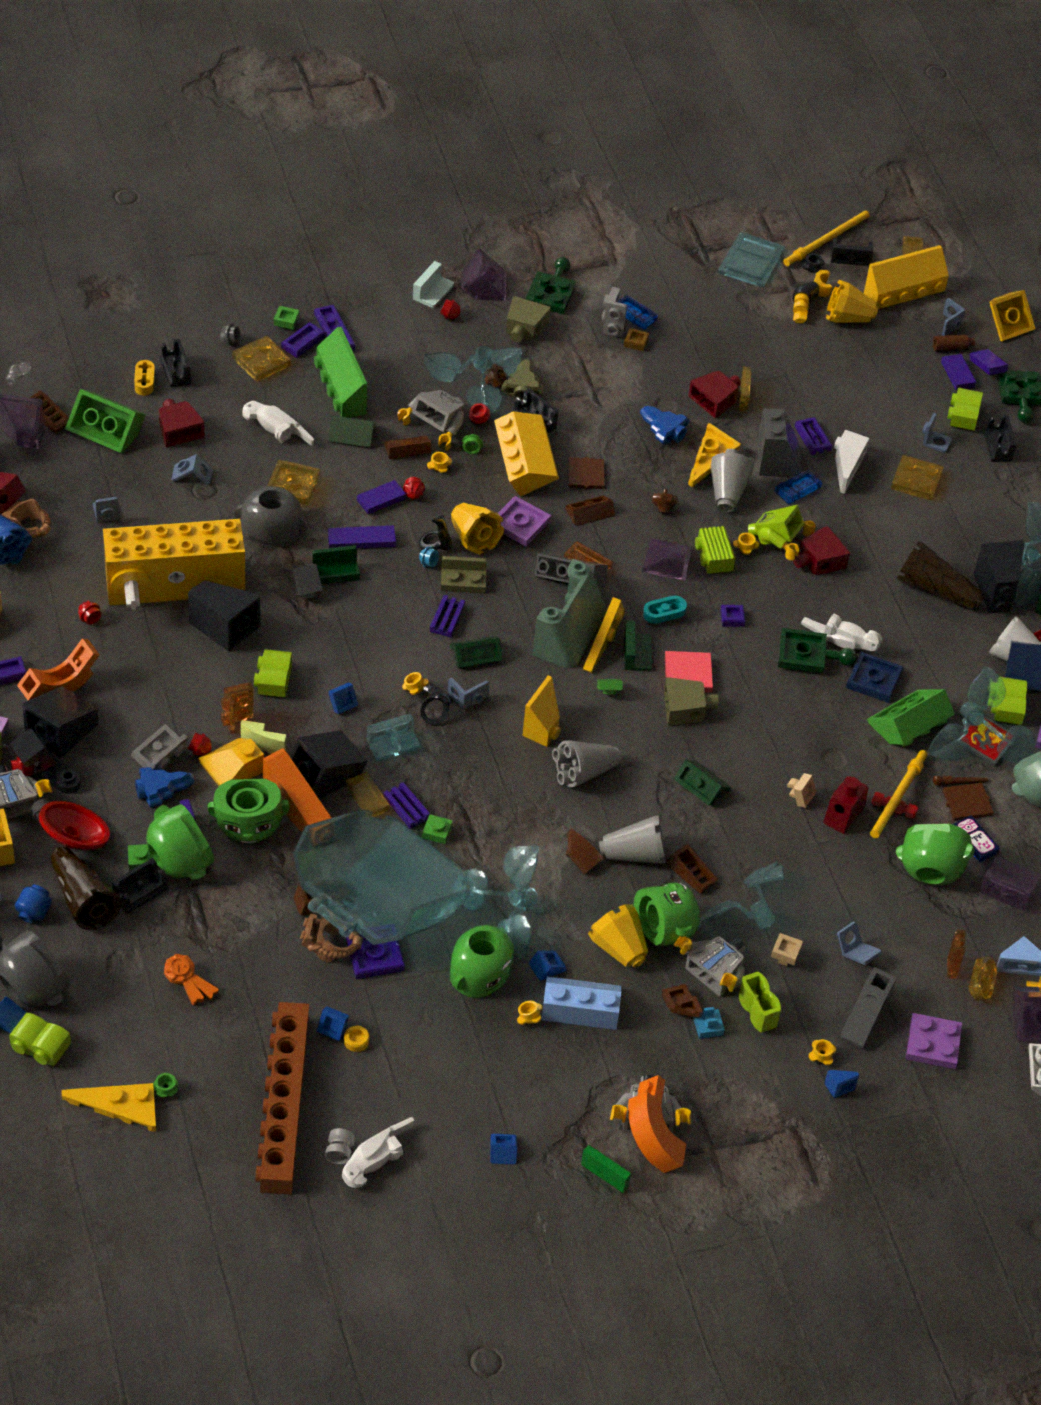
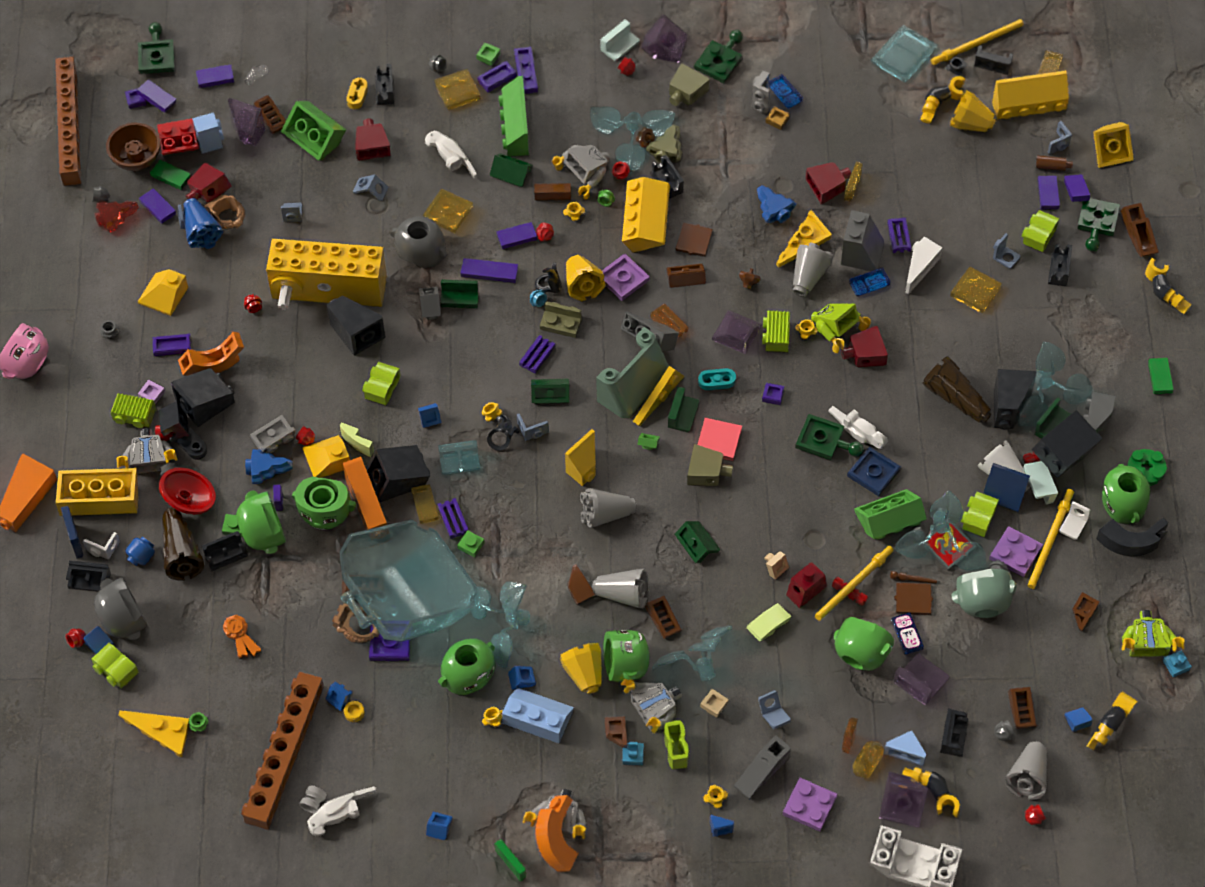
camera: 20 degrees right, 10 degrees up
(237, 704) = (341, 407): clear orange bracket -> none
(815, 853) = (768, 621): none -> yellowish green slope

